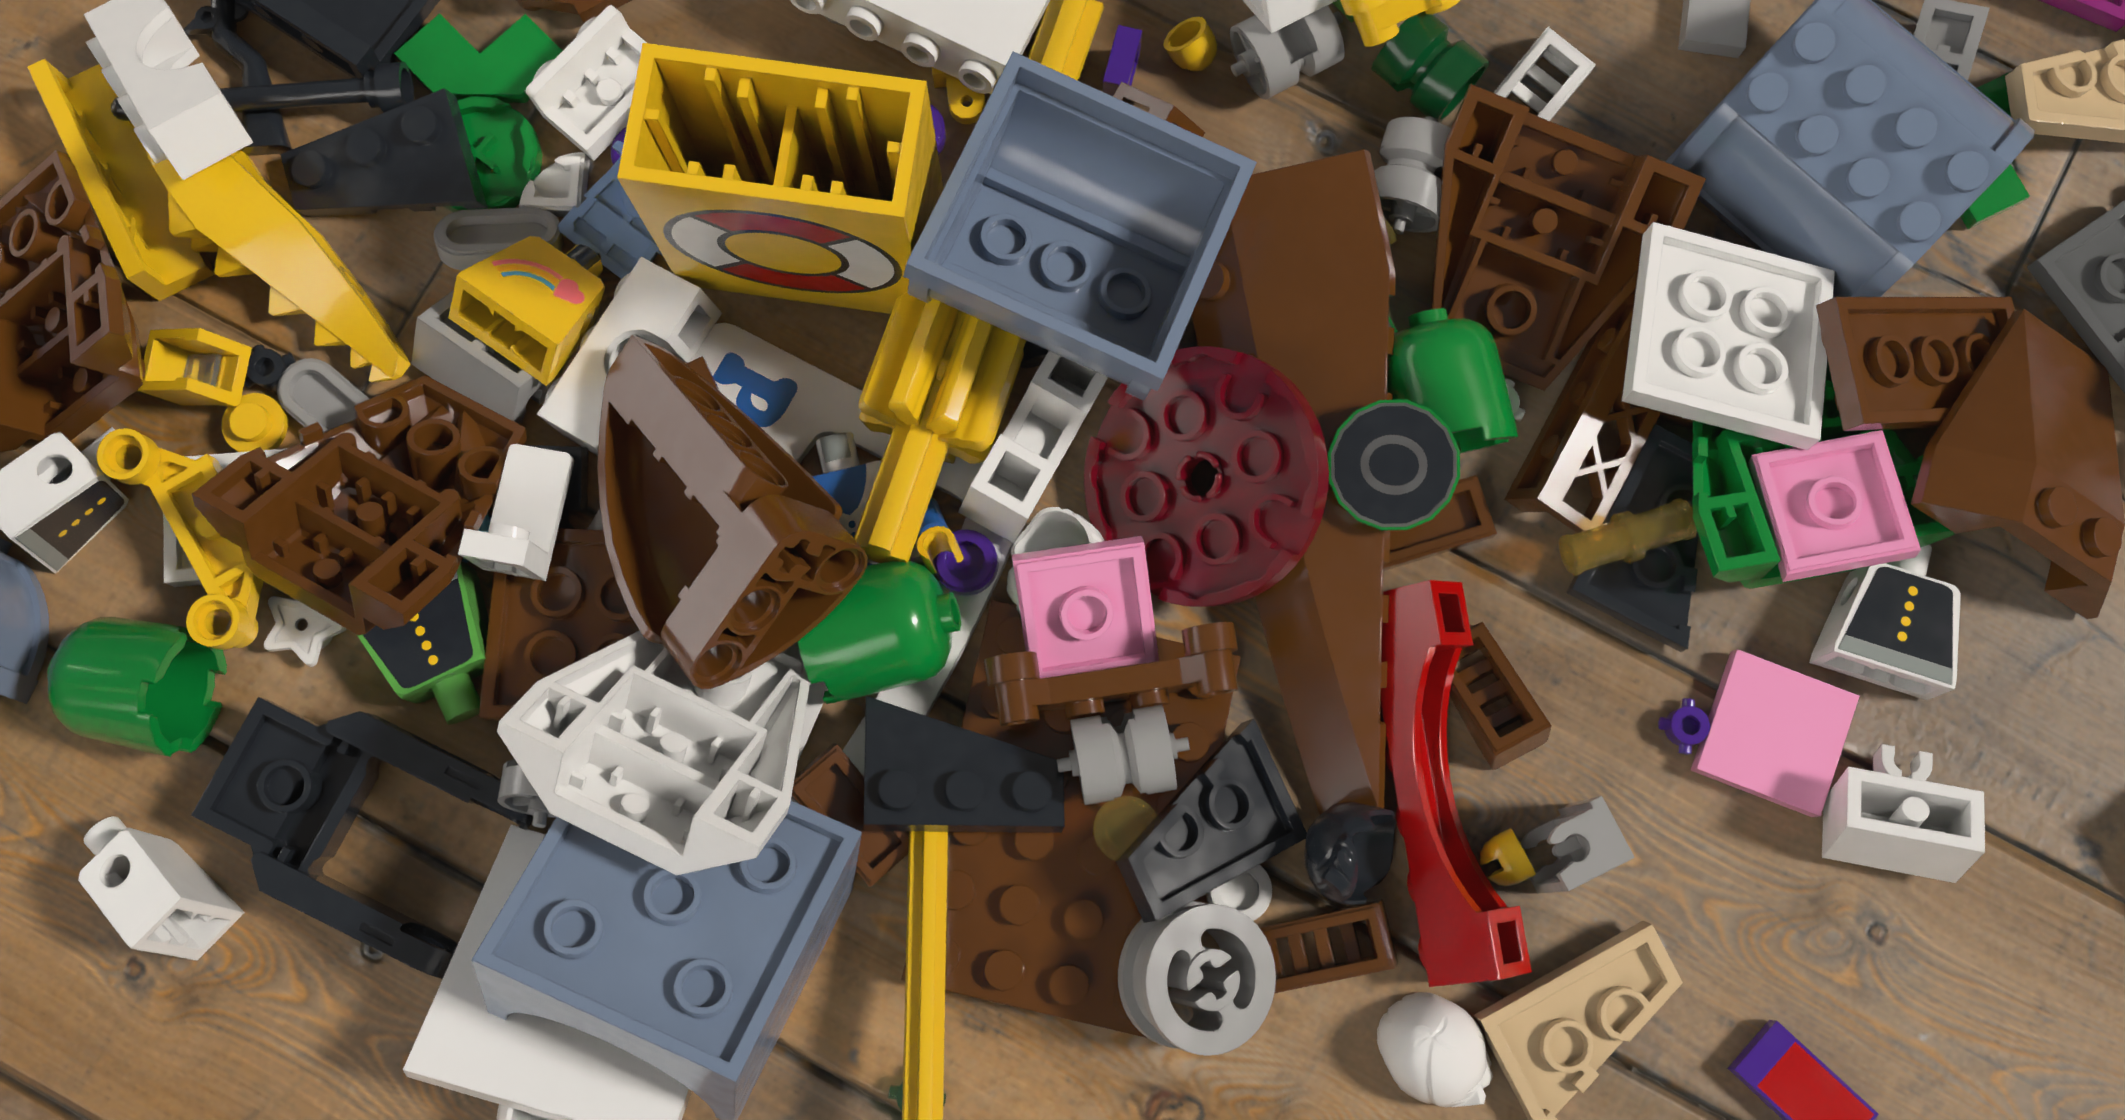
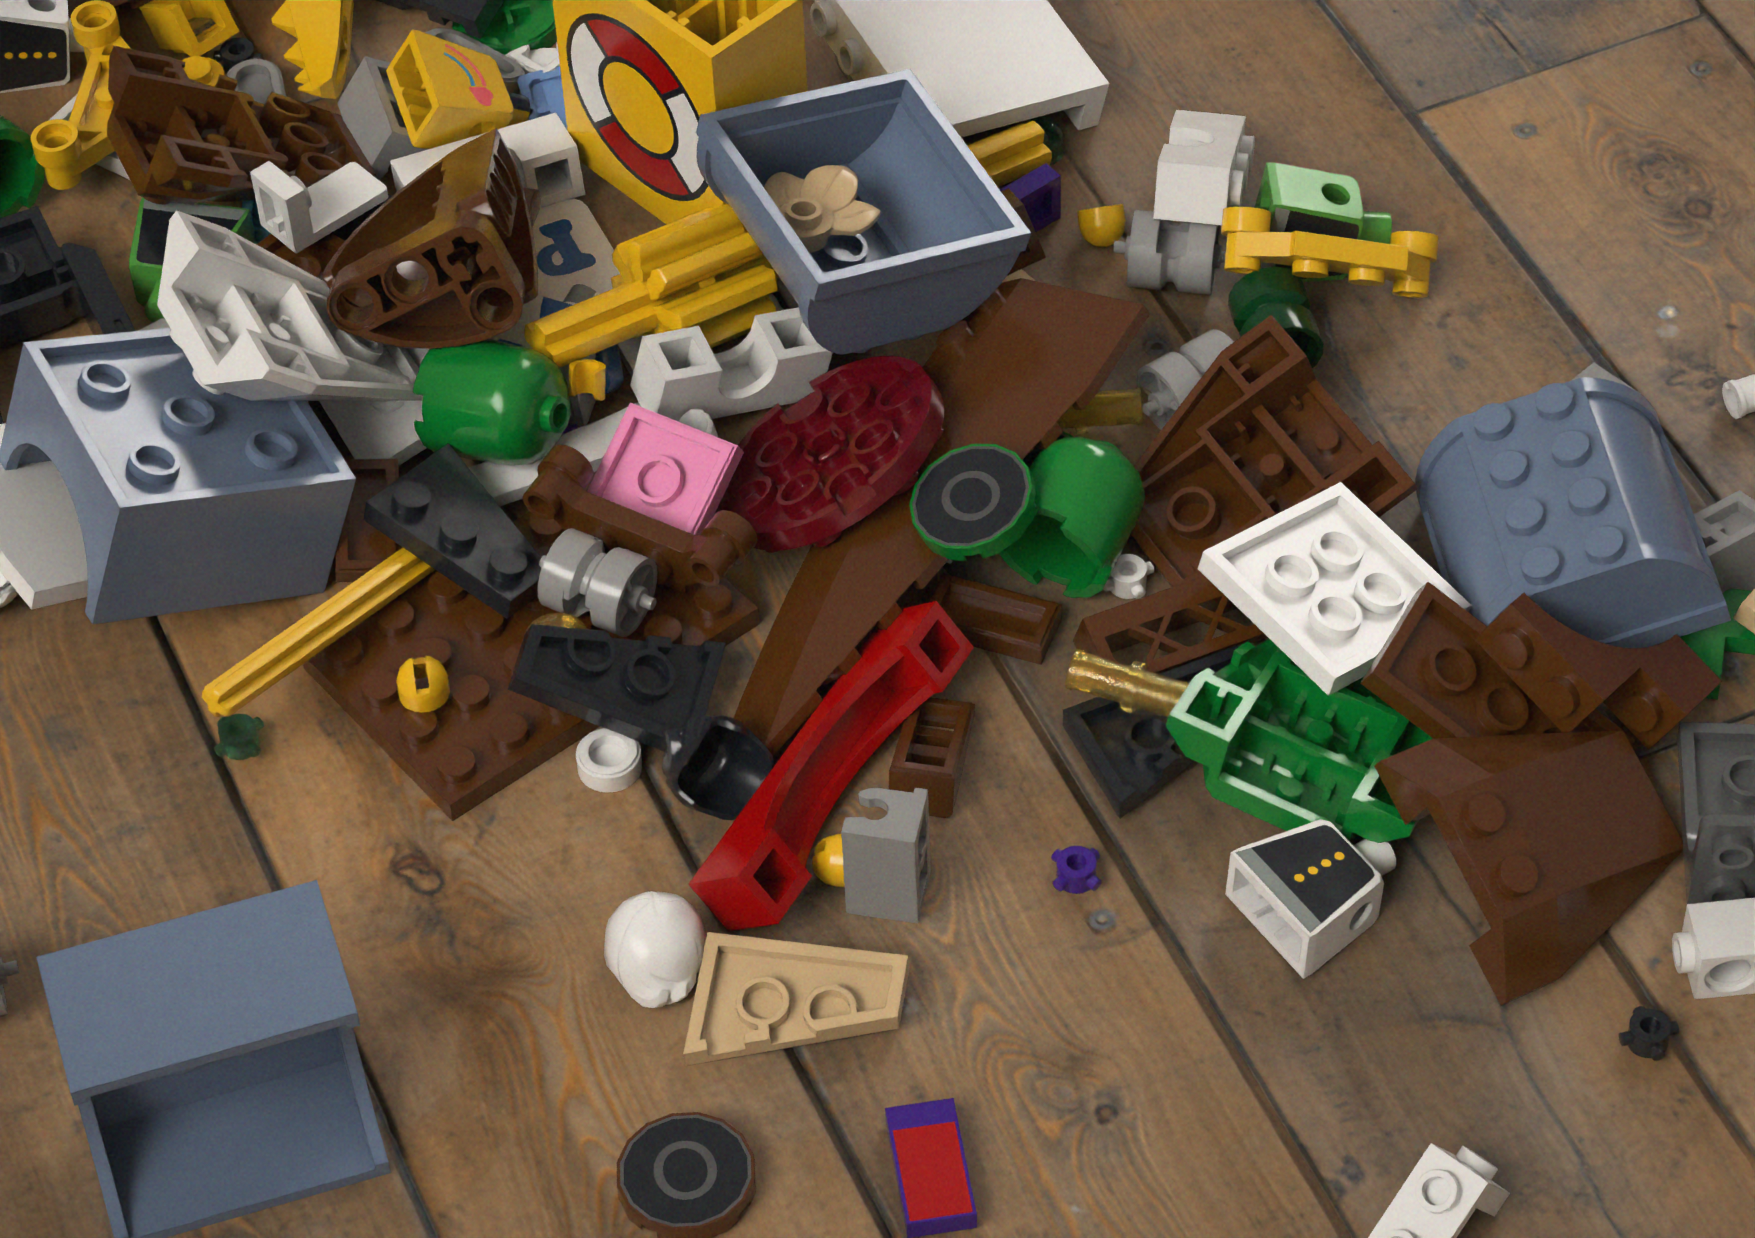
camera: 40 degrees right, 30 degrees down
(287, 636) = (96, 209): white plate -> none
(976, 569) = (599, 420): dark purple tile -> none
(1038, 248) = (821, 204): none -> tan plate
(1059, 941) = (427, 698): none -> yellow hinge
(1225, 1000) = (533, 727): light grey wheel -> none
(1379, 932) = (675, 854): reddish brown slope -> none
(1563, 57) = (1368, 375): white slope -> none
(1775, 733) = (1146, 917): bright pink tile -> none
(1834, 506) = (1315, 745): bright pink tile -> none
(1903, 820) = (1183, 1012): white brick -> none
(2007, 257) = (1574, 674): none -> reddish brown arch

